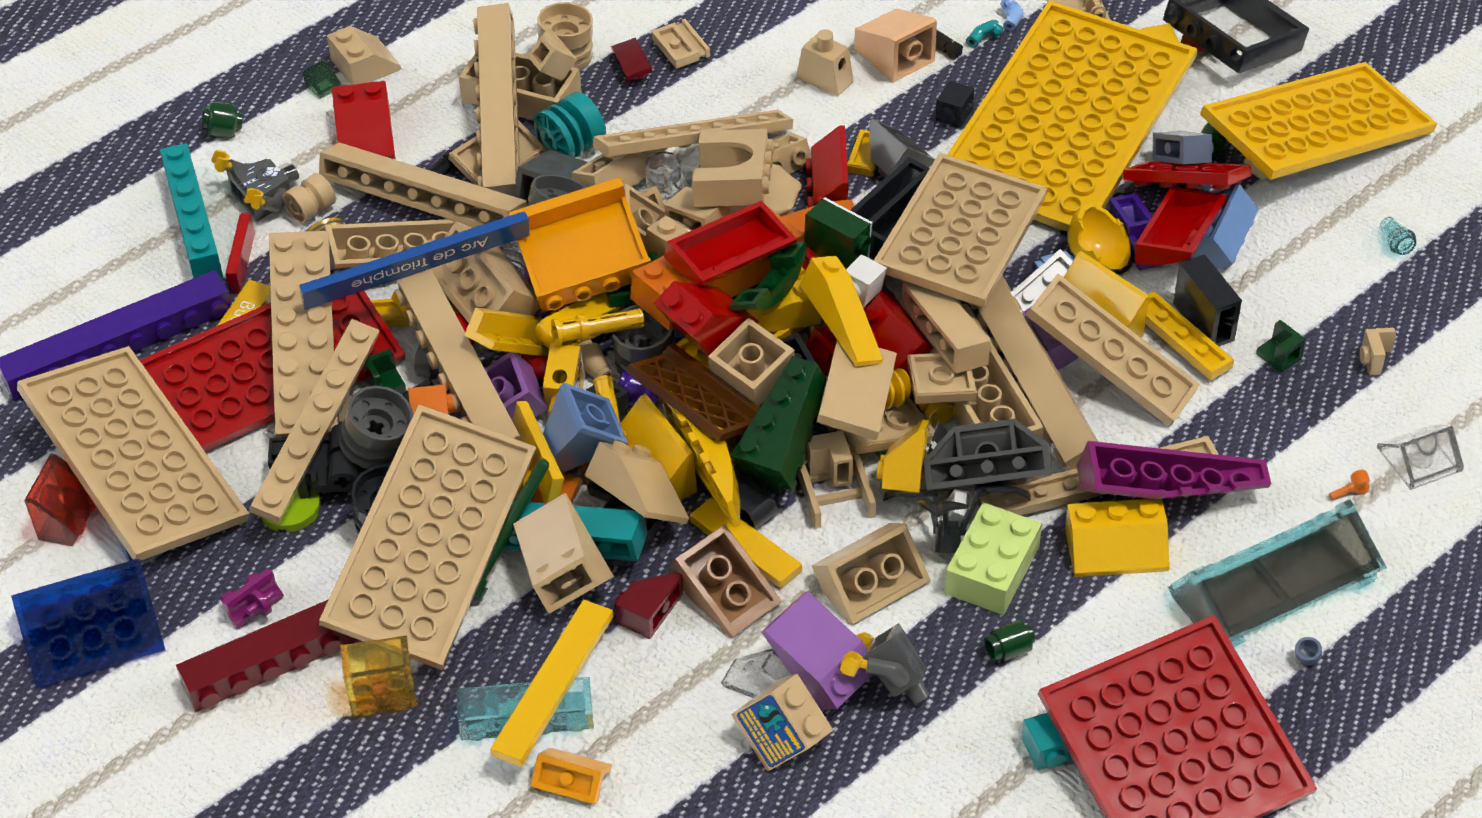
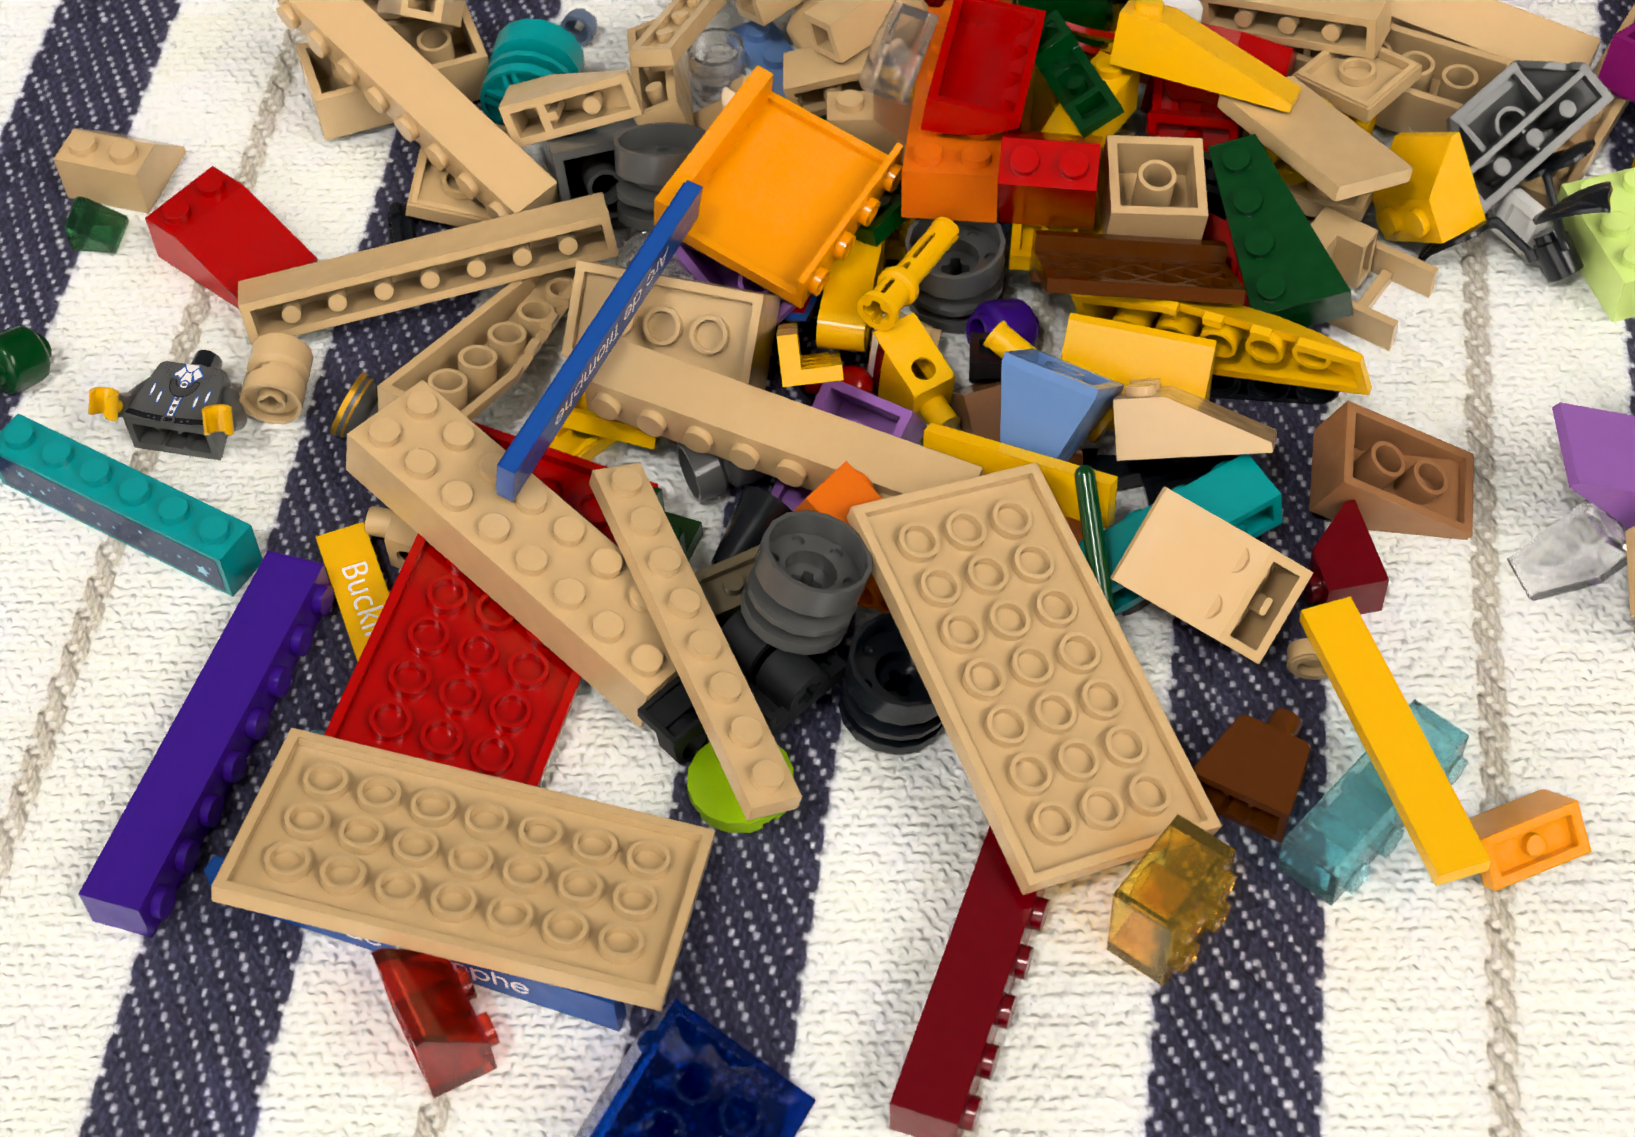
camera: 40 degrees left, 5 degrees up
(240, 253) = (260, 506): red tile -> none
(252, 598) = (866, 937): magenta hips -> none
(493, 656) = (1257, 772): none -> reddish brown torso
(547, 146) = (567, 104): none -> tan slope
(634, 116) = (587, 19): none -> sand blue hinge
(706, 209) = (898, 52): none -> clear slope
(768, 557) = (1299, 414): yellow tile -> none
(872, 572) = (1525, 346): tan slope -> none

